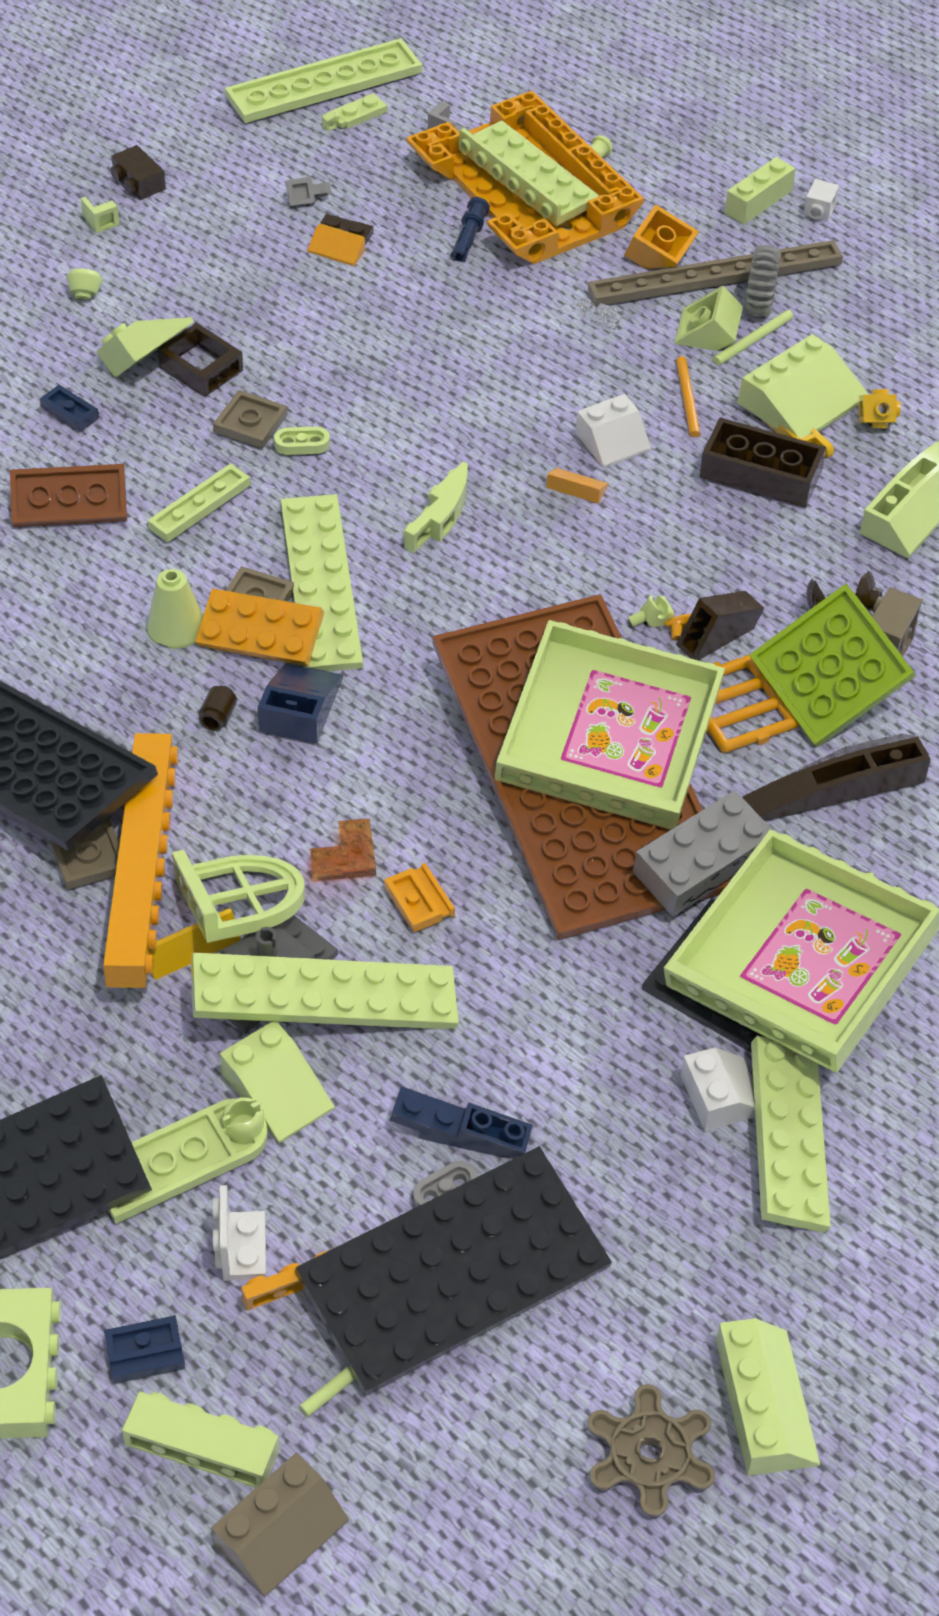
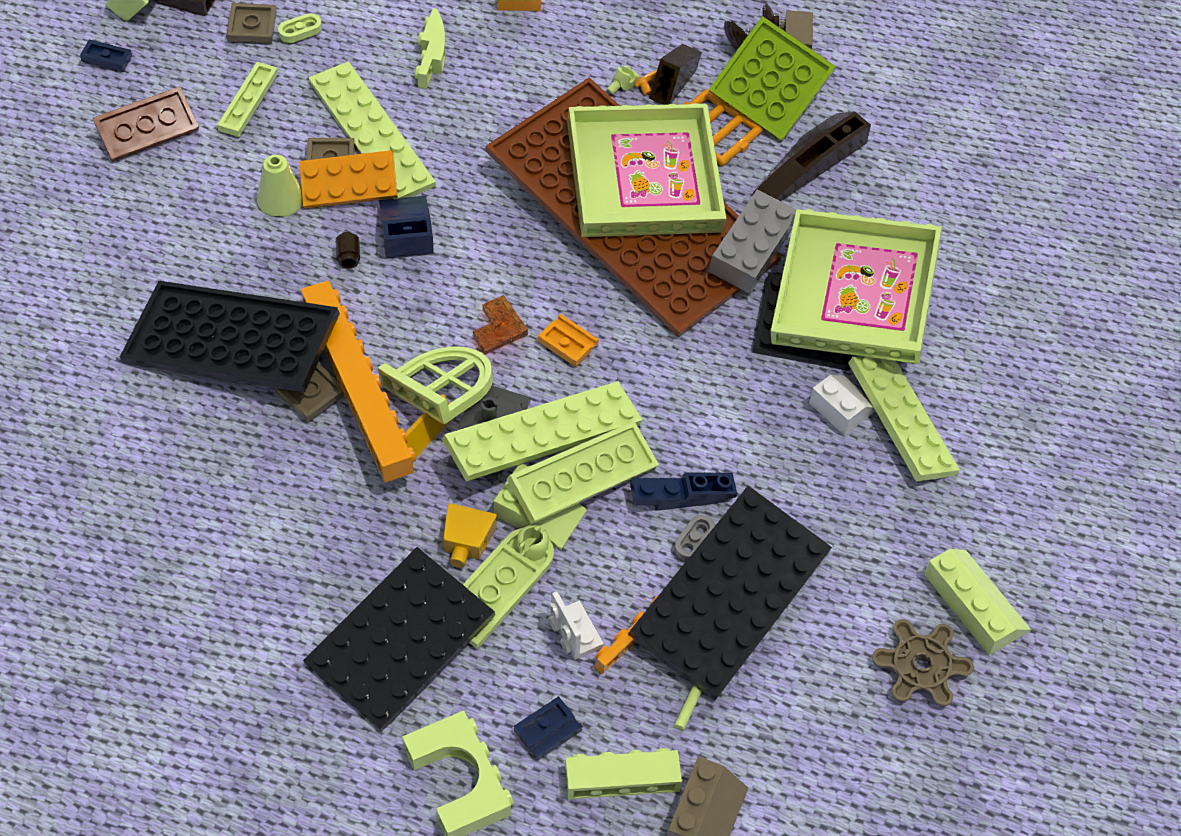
camera: 25 degrees left, 5 degrees up
(174, 1082) = (467, 533): none -> yellow torso
(344, 1057) = (582, 472): none -> yellowish green plate

